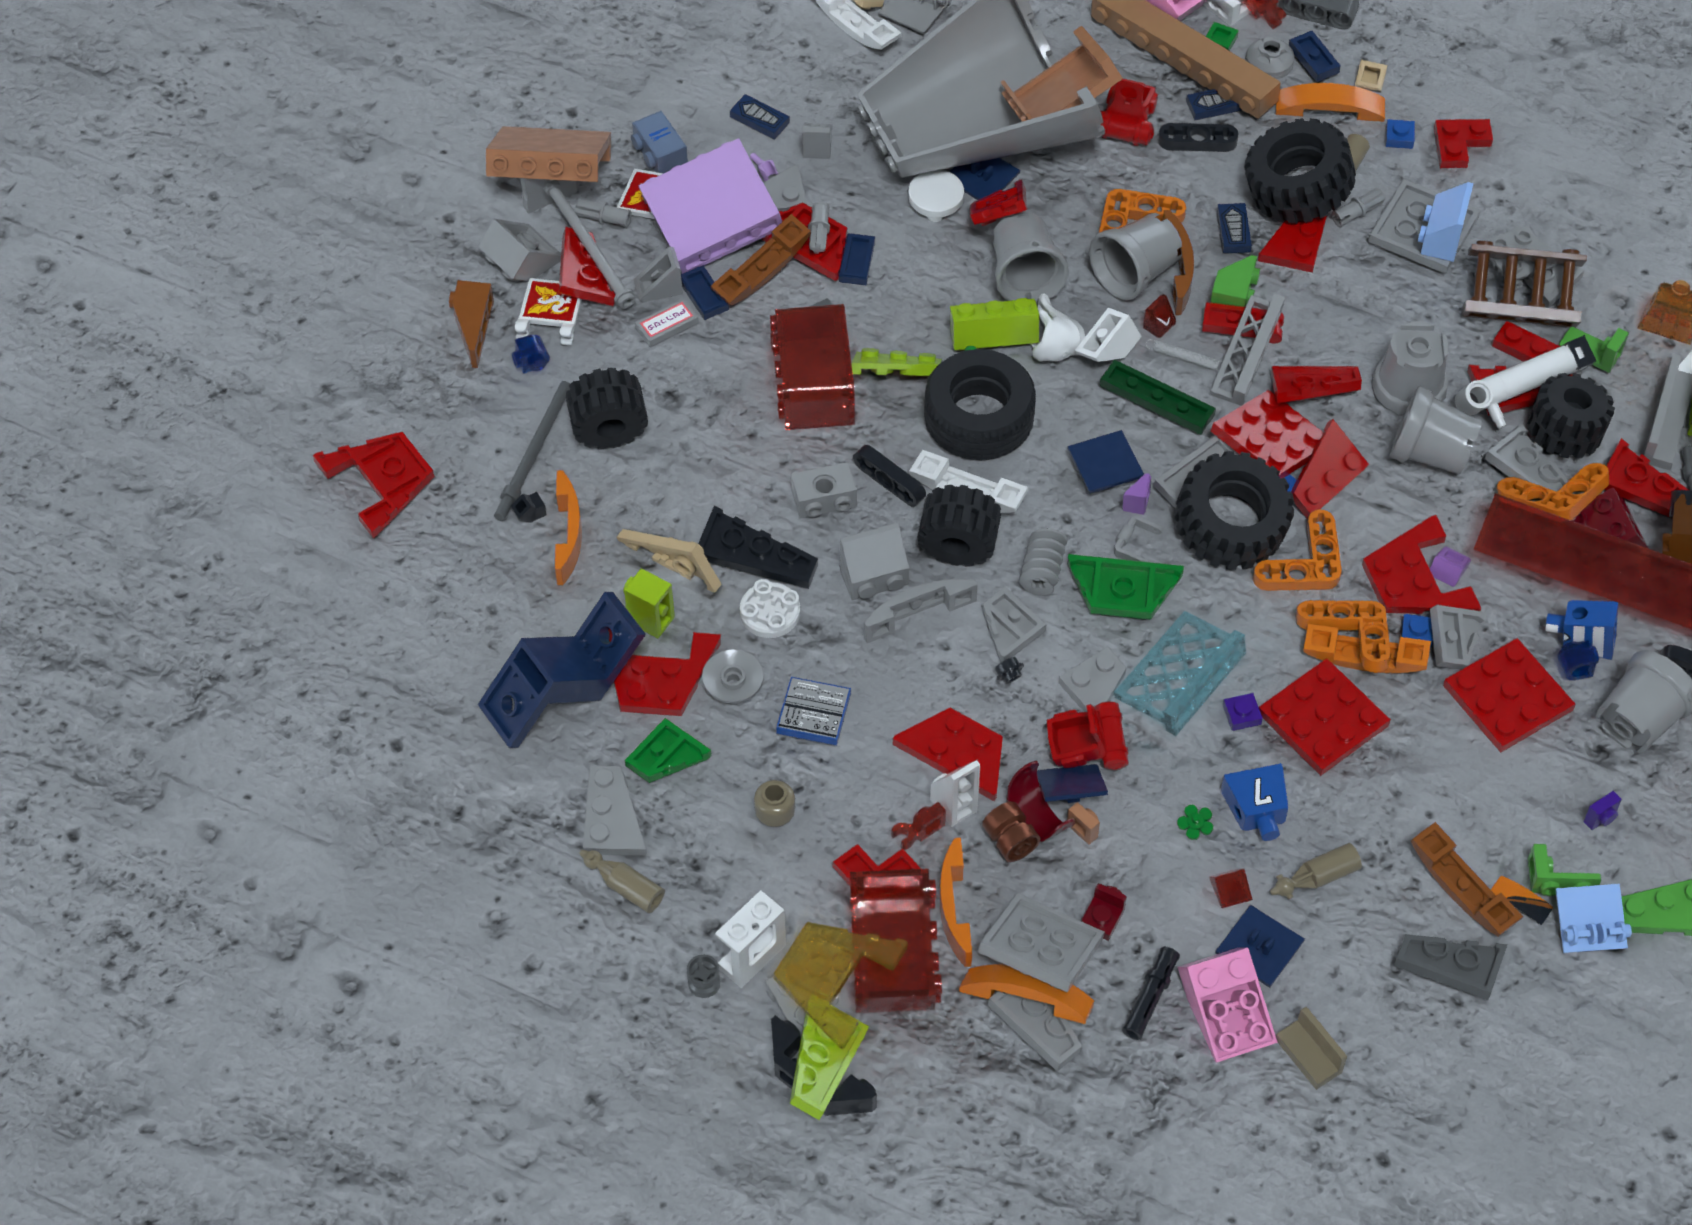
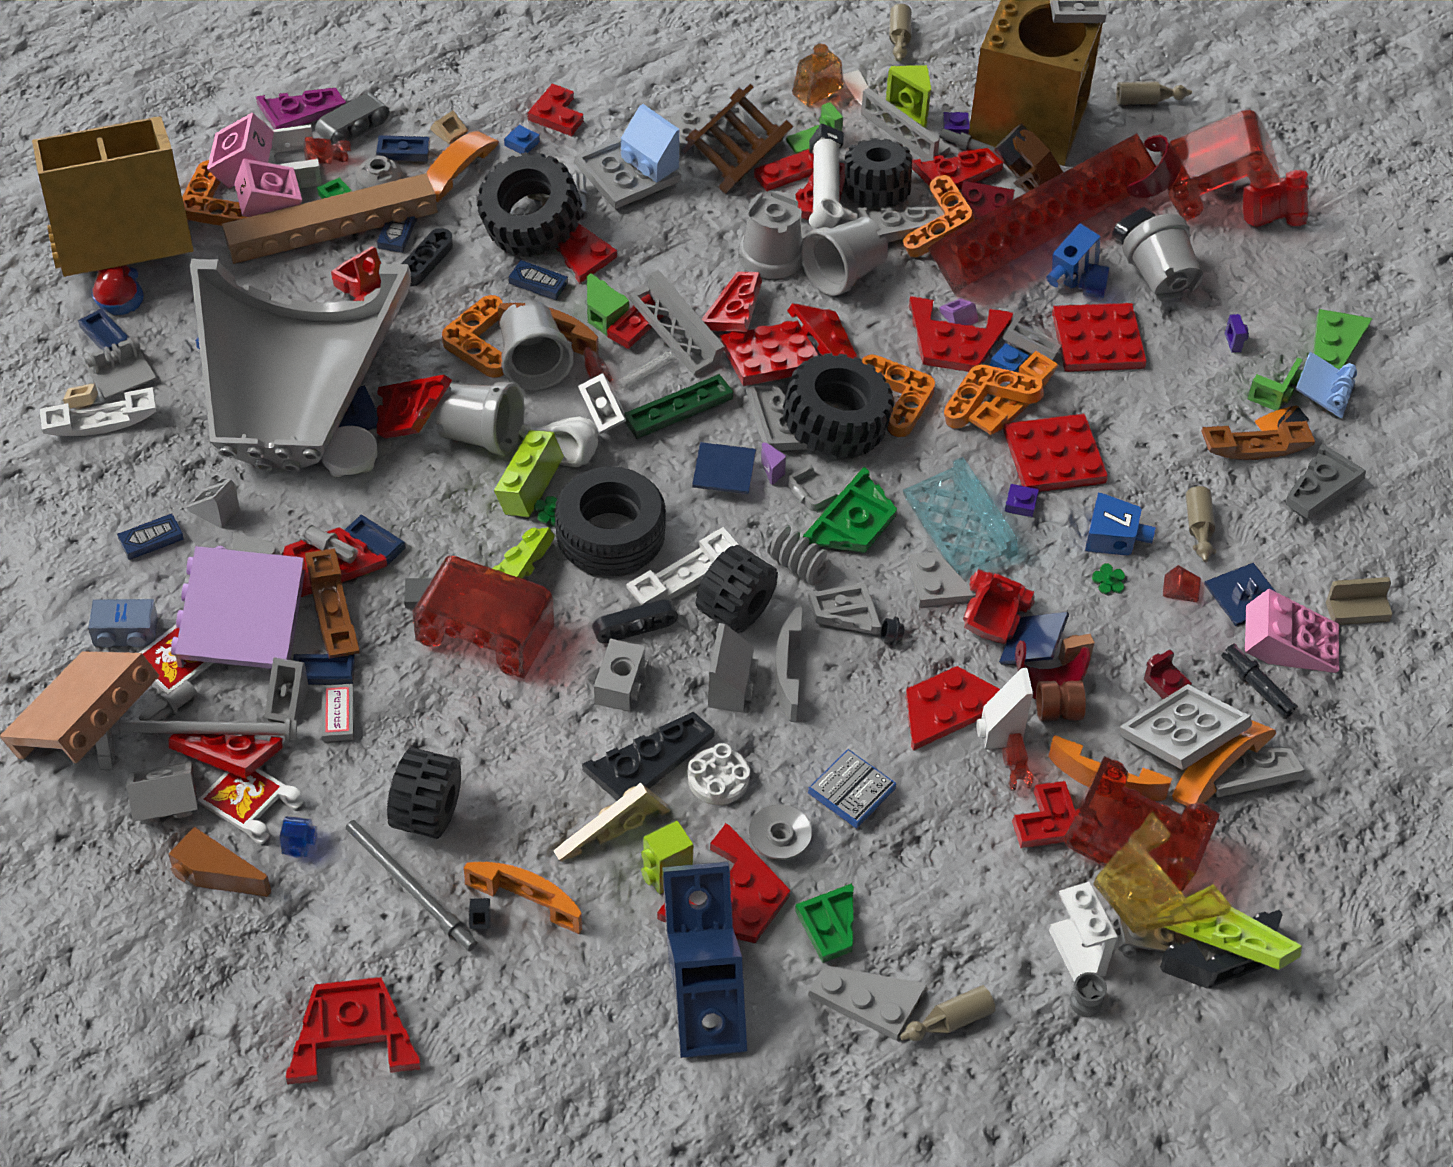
camera: 65 degrees left, 5 degrees down
(774, 803) = (939, 857): dark tan head -> none
(1058, 85) = (331, 293): nougat panel -> none

